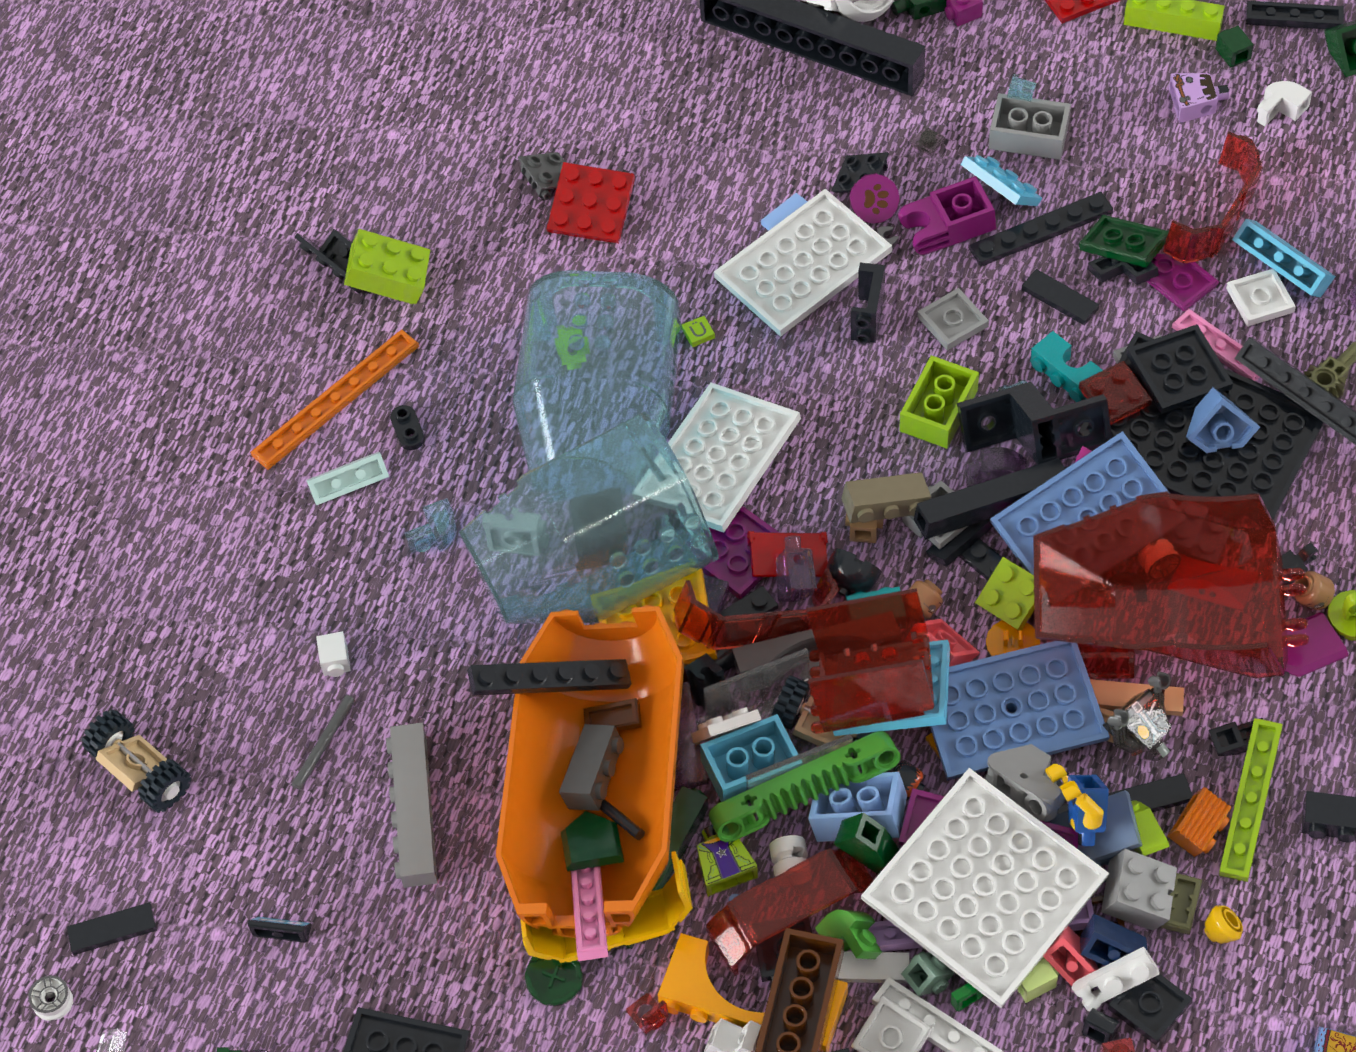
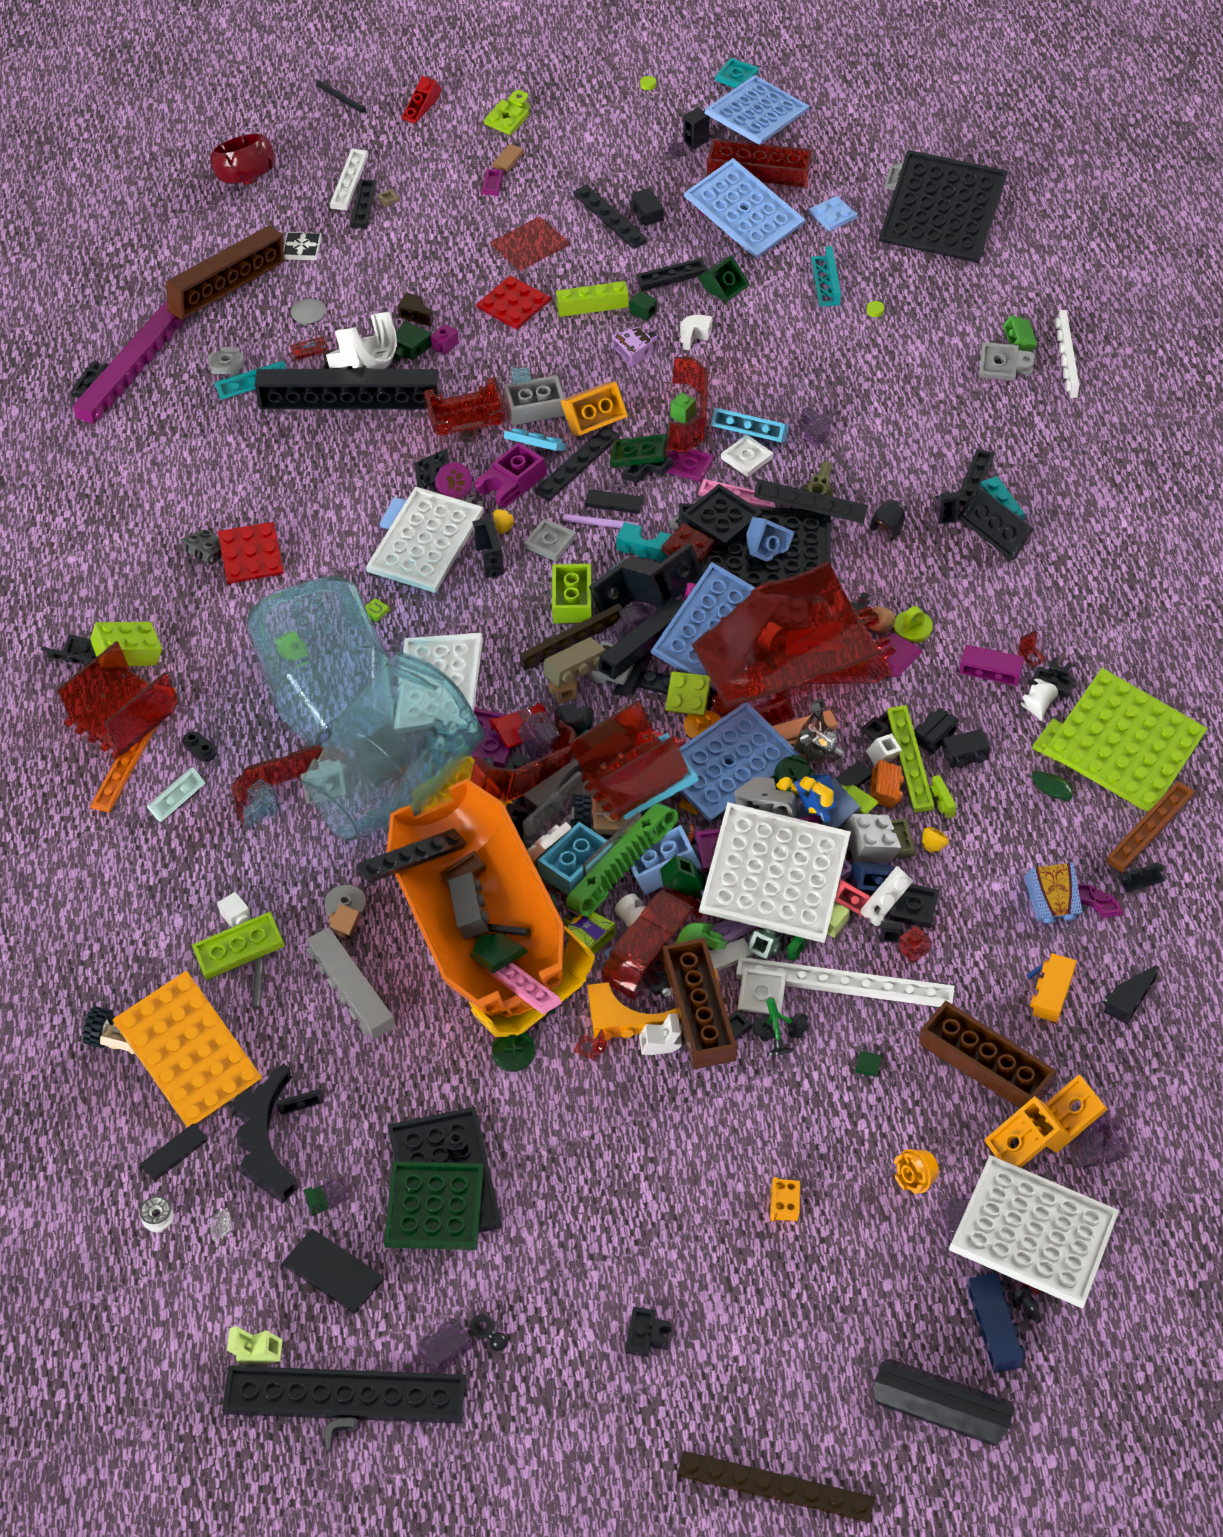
camera: 30 degrees left, 5 degrees down
(181, 810) = (187, 1049): none -> light orange plate
(225, 918) = (256, 1110): none -> black arch
(315, 699) = (238, 945): none -> lime tile
(336, 335) = (115, 702): none -> clear red windscreen
(446, 722) = (344, 921): none -> medium nougat brick
(460, 494) = (273, 772): none -> clear red windscreen
(461, 709) = (352, 894): none -> light grey plate
(906, 459) = (570, 637): none -> dark brown plate
(907, 273) = (502, 521): none -> yellow cone
(934, 110) = (466, 410): none -> clear red windscreen
(1027, 316) = (595, 521): none -> lavender bar
(1087, 755) = (793, 767): none -> dark green tile
(1095, 164) = (594, 408): none -> light orange brick
(1211, 203) = (683, 408): none -> bright green brick
(1221, 774) = (884, 749): none -> white brick
(1265, 881) = (945, 801): none -> lime plate
(1308, 772) = (937, 726): none -> black brick

